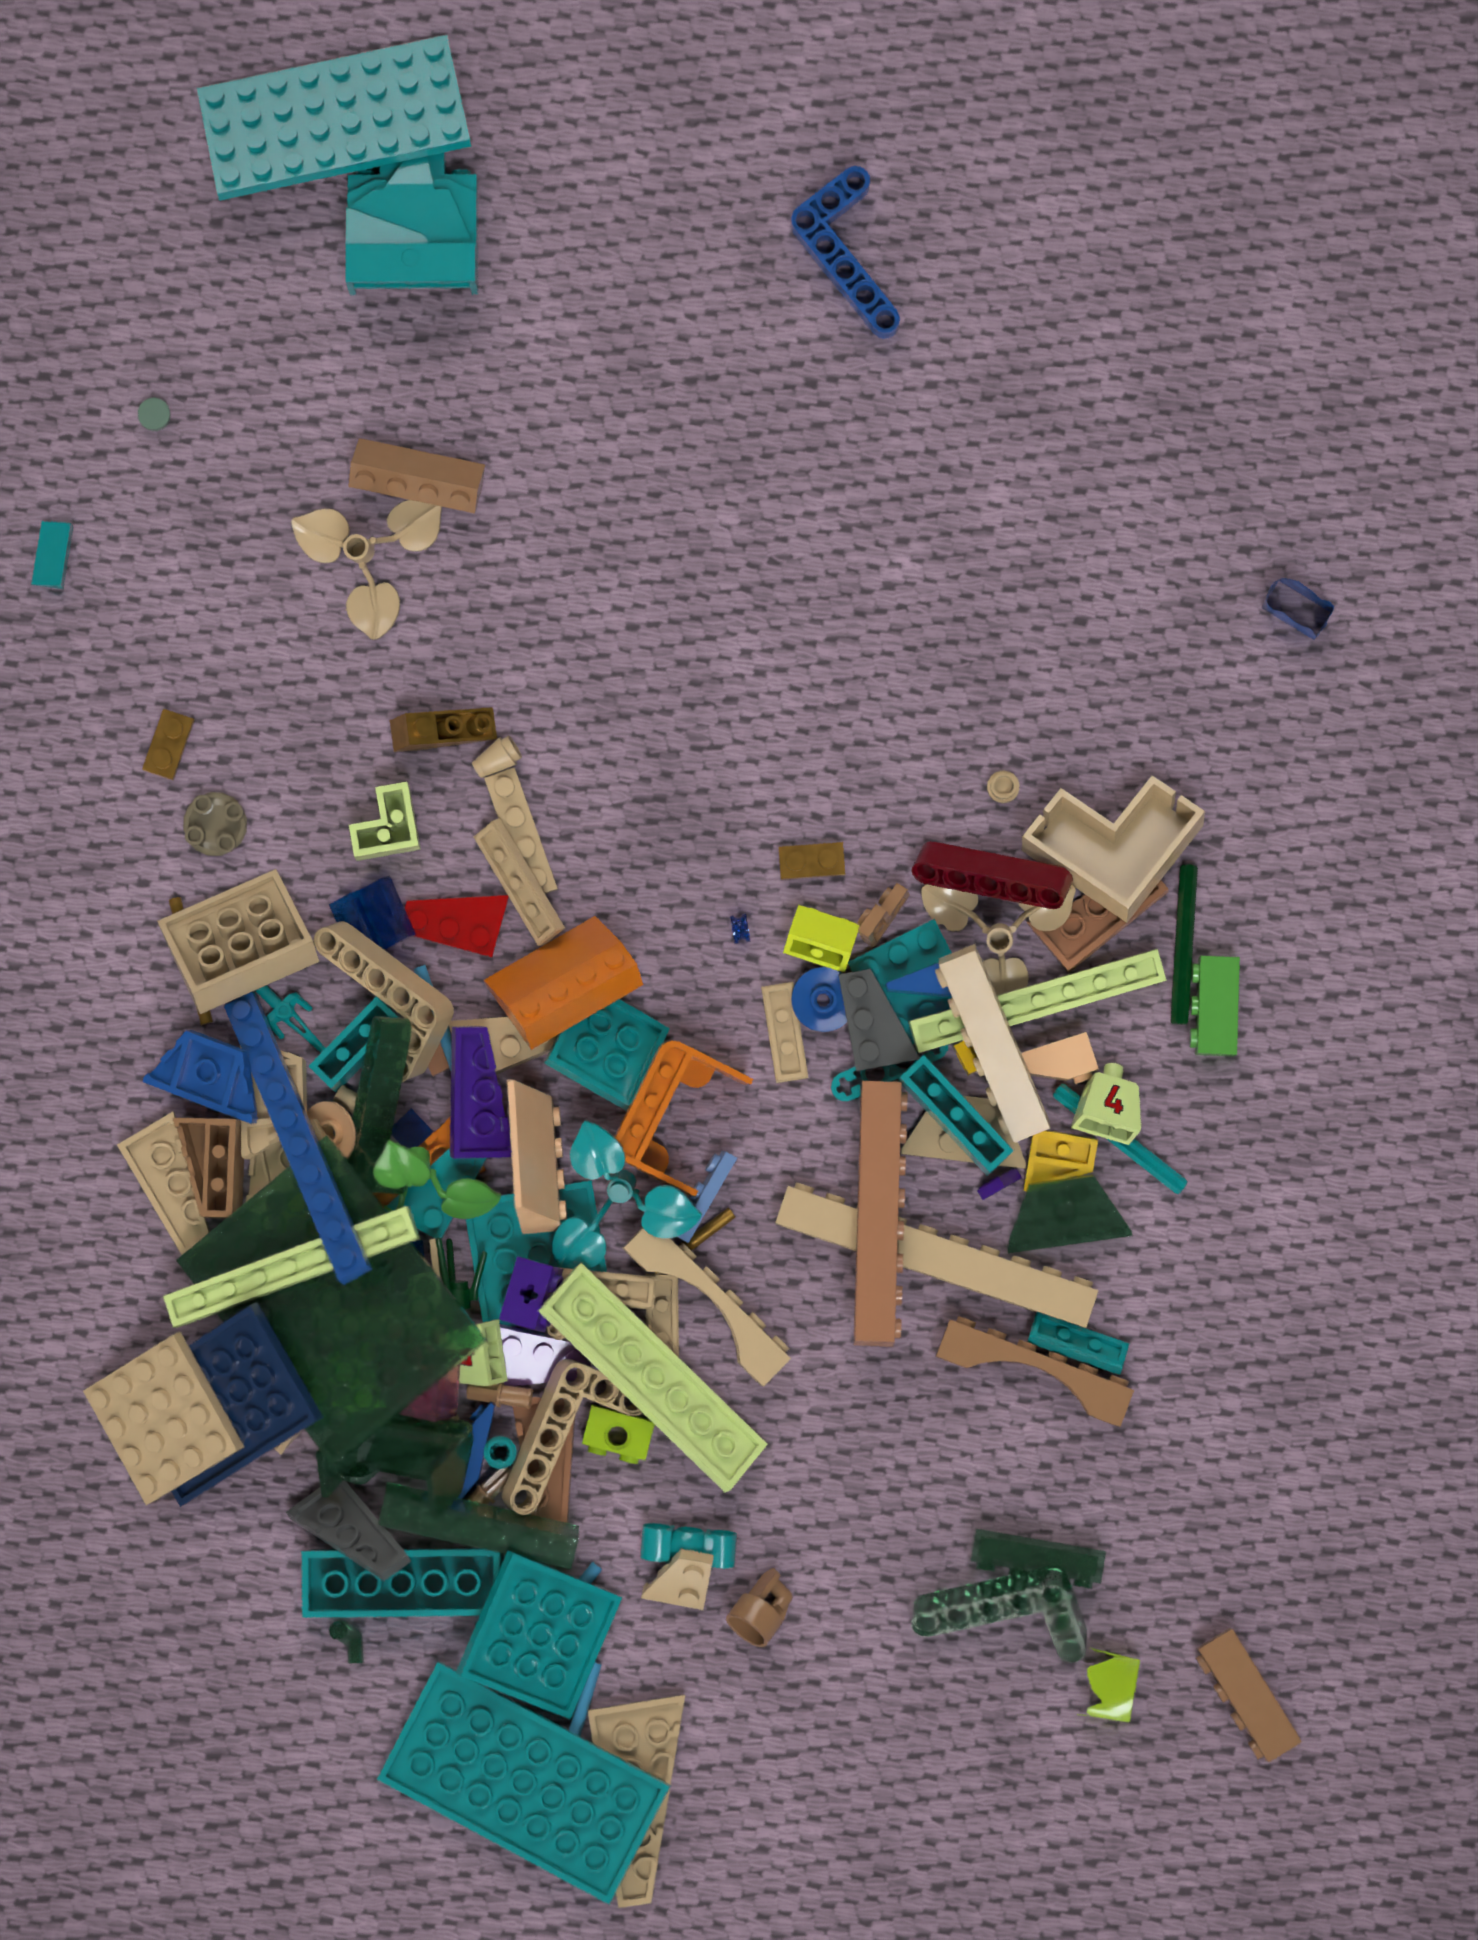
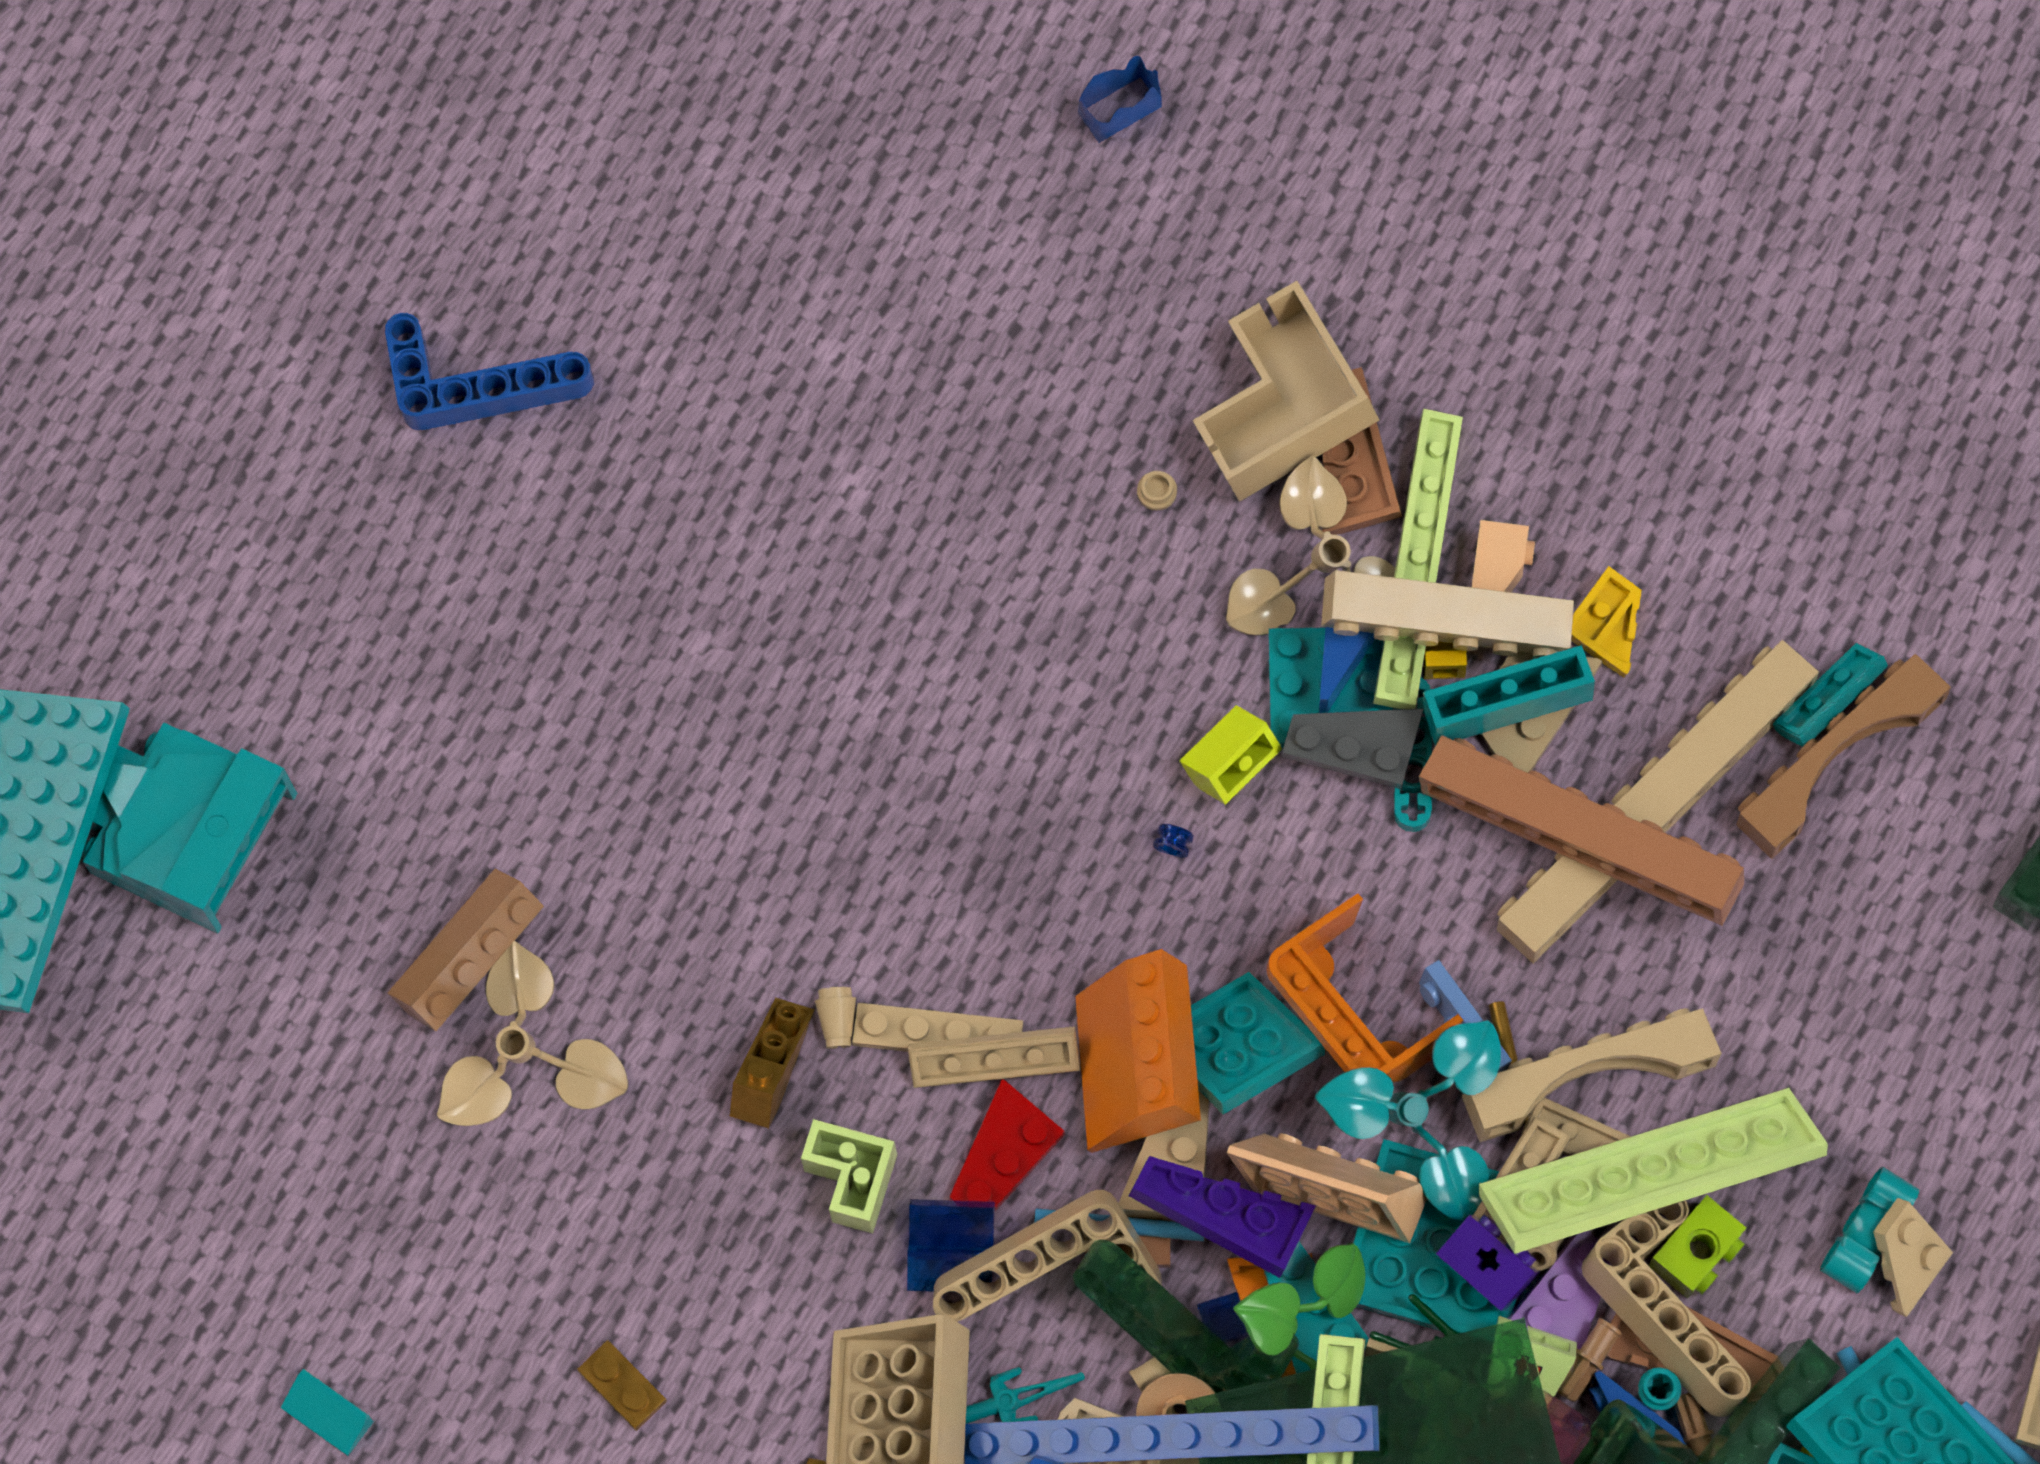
camera: 55 degrees left, 15 degrees down
(154, 414) = (229, 1216): sand green tile -> none
(215, 824) = (744, 1374): dark tan dish -> none
(347, 1051) = (1090, 1336): teal brick -> none
(756, 1619) = (1991, 1191): medium nougat piece -> none
(784, 1033) = (1316, 849): tan tile -> none
(805, 1005) = (1280, 779): blue dish -> none
(811, 860) = (1135, 730): pearl gold plate -> none
(876, 921) = (1239, 681): medium nougat plate -> none
(992, 875) = (1253, 535): dark red beam -> none
(999, 1183) = (1607, 697): dark purple tile -> none
(1065, 1214) = (1676, 642): clear green wing -> none
(1109, 1106) = (1577, 535): yellowish green torso -> none
(1134, 1150) = (1616, 547): teal axle -> none
(1184, 944) = (1431, 384): dark green axle -> none
(1215, 1006) = (1517, 378): bright green brick -> none

